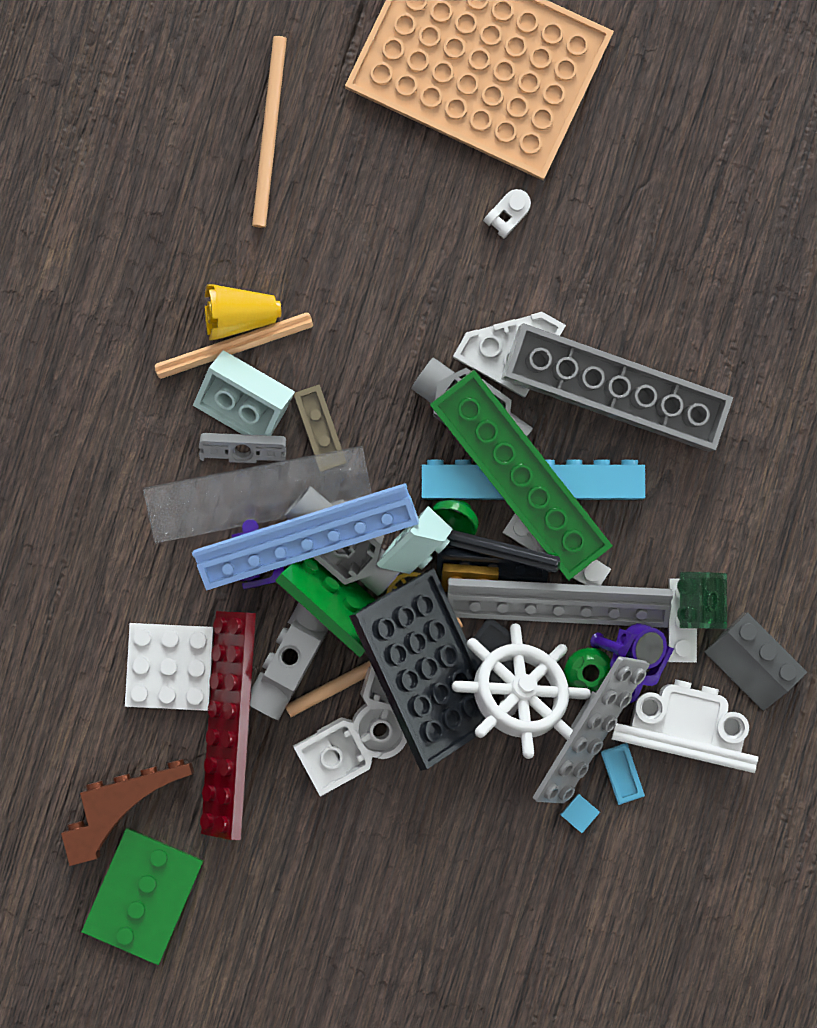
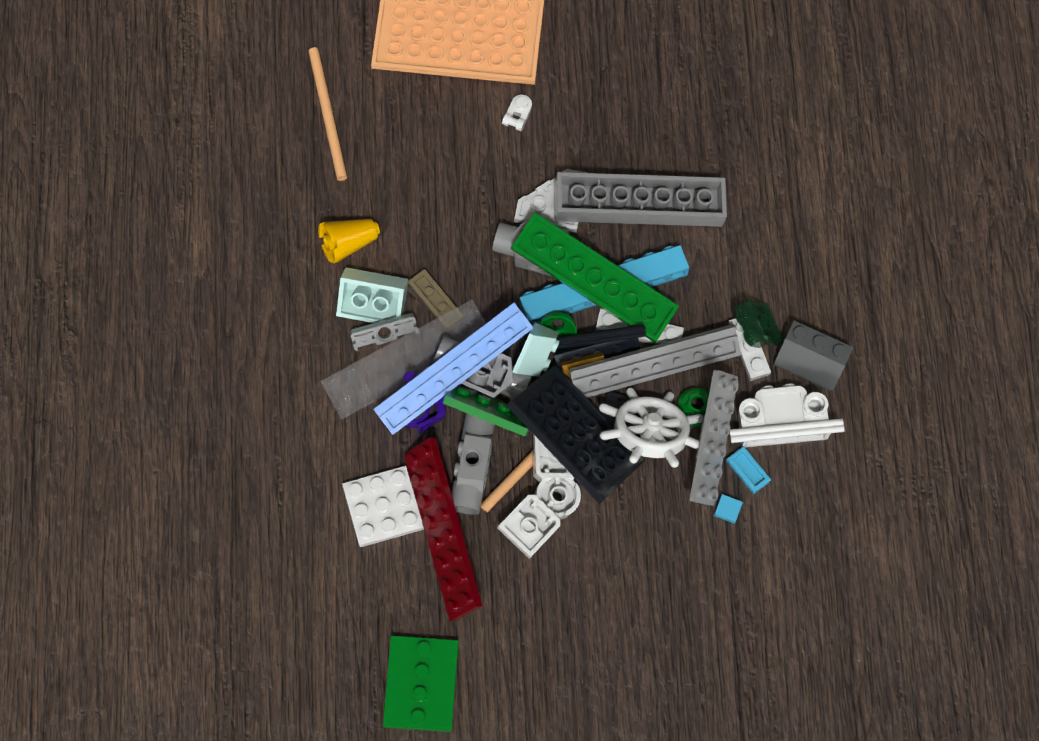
camera: 20 degrees left, 15 degrees down
(109, 803) = (373, 619): copper arch -> none
(234, 345) = (354, 263): light nougat axle -> none
(638, 643) = (729, 364): dark purple piece -> none

